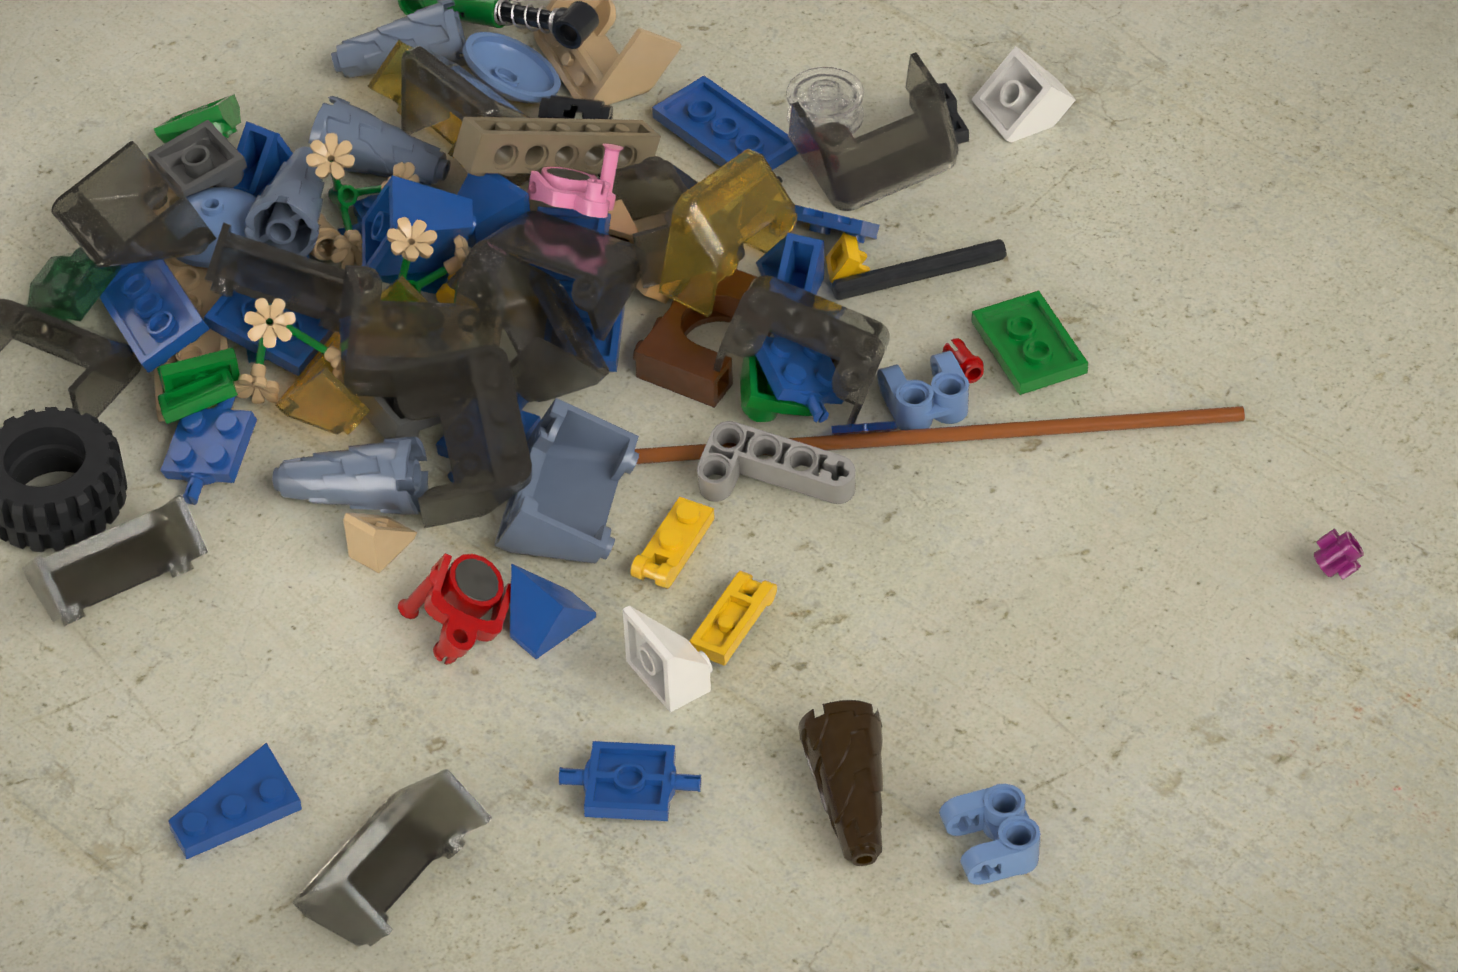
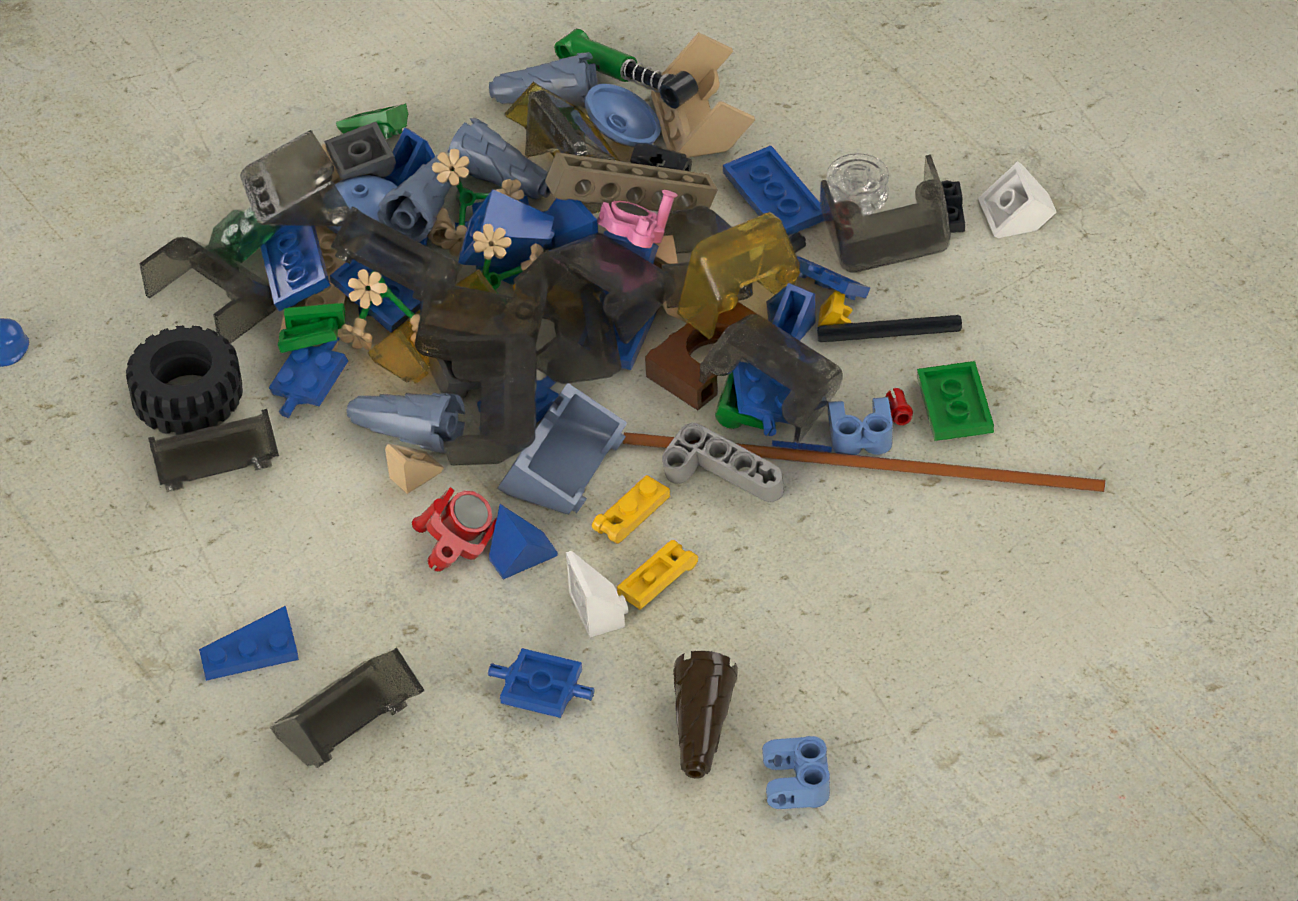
camera: 15 degrees right, 0 degrees up
(1338, 554) = (1137, 608): magenta gear -> none

